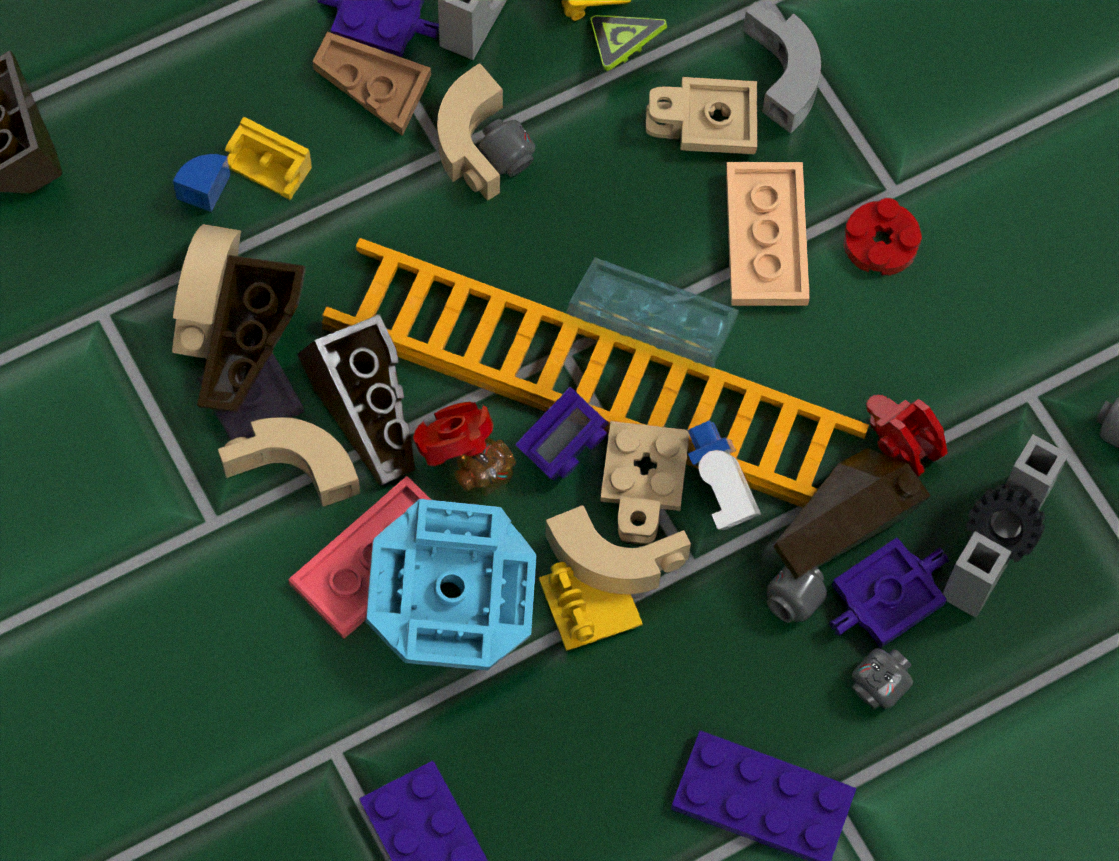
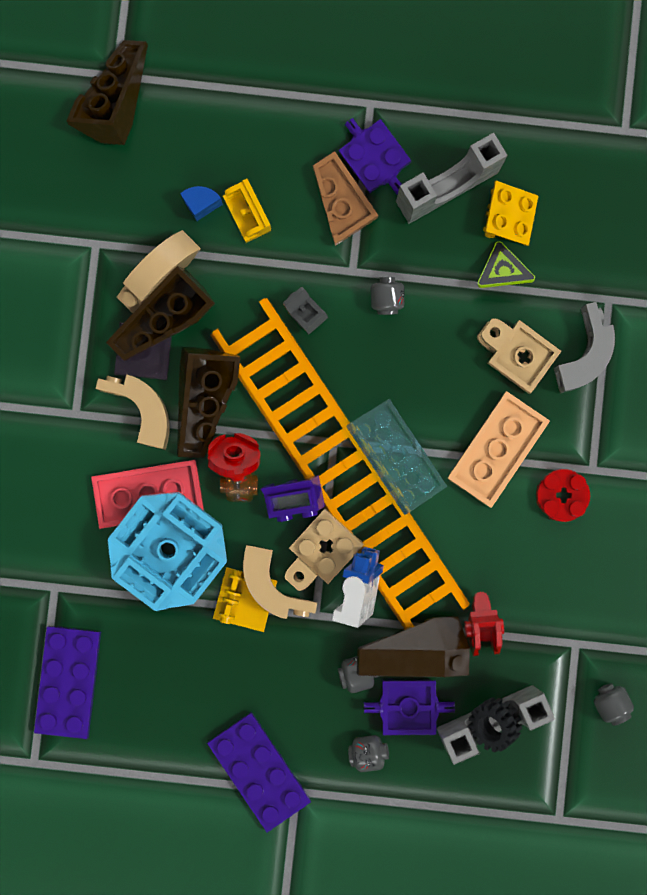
camera: 30 degrees right, 20 degrees up
(419, 223) = (304, 310): none -> dark grey bracket
(463, 108) = (380, 253): tan arch -> none

